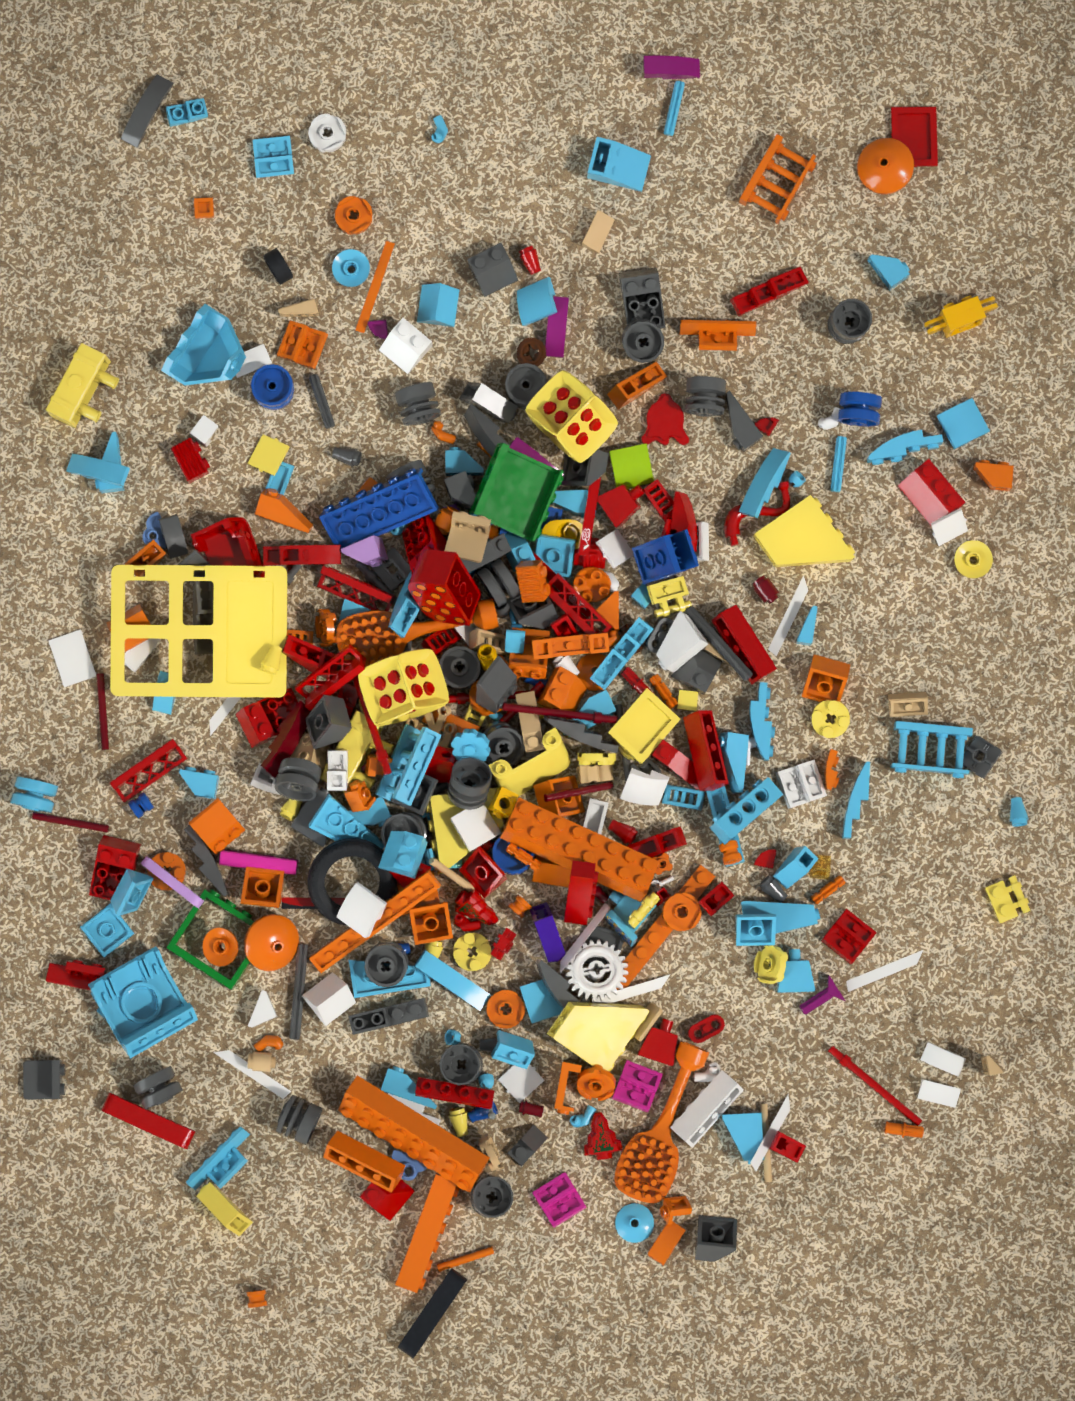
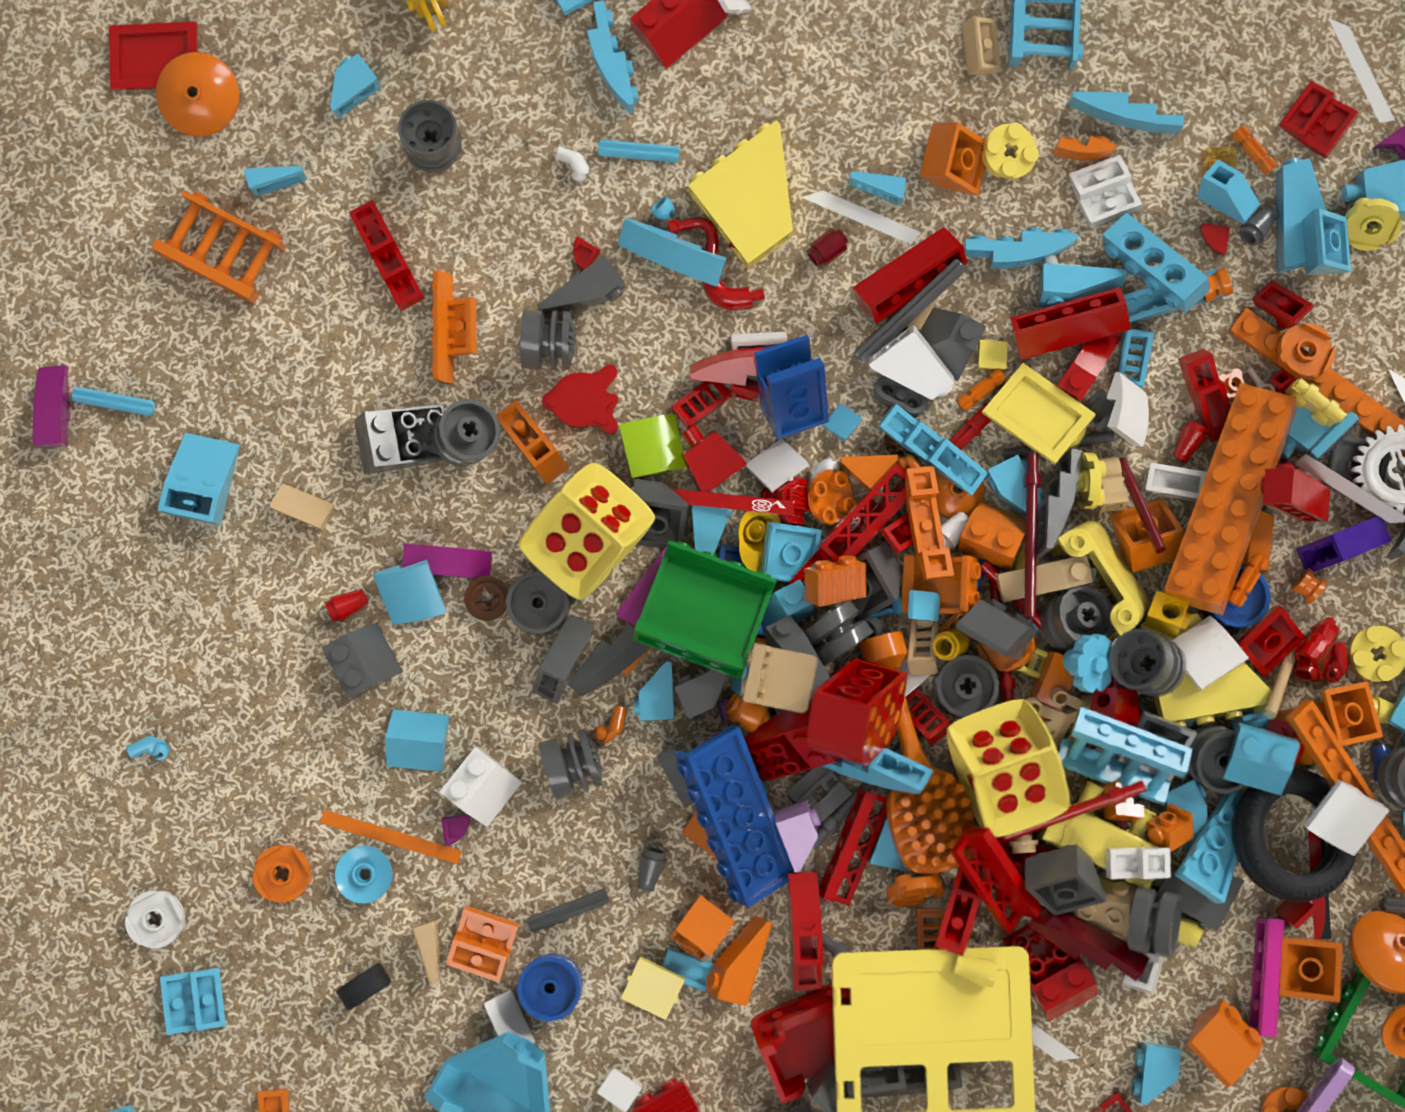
camera: 90 degrees left, 0 degrees up
(210, 867) = (1283, 1049): dark grey slope -> none
(300, 883) = (1295, 912): none -> red slope
(306, 486) = (701, 929): none -> orange head
(352, 699) = (1024, 844): none -> tan plate
(504, 944) = (1369, 606): red piece -> none
(666, 591) = (840, 395): light yellow plate -> none
(823, 210) = (273, 178): none -> medium azure slope
(860, 409) = (563, 118): blue wheel -> none

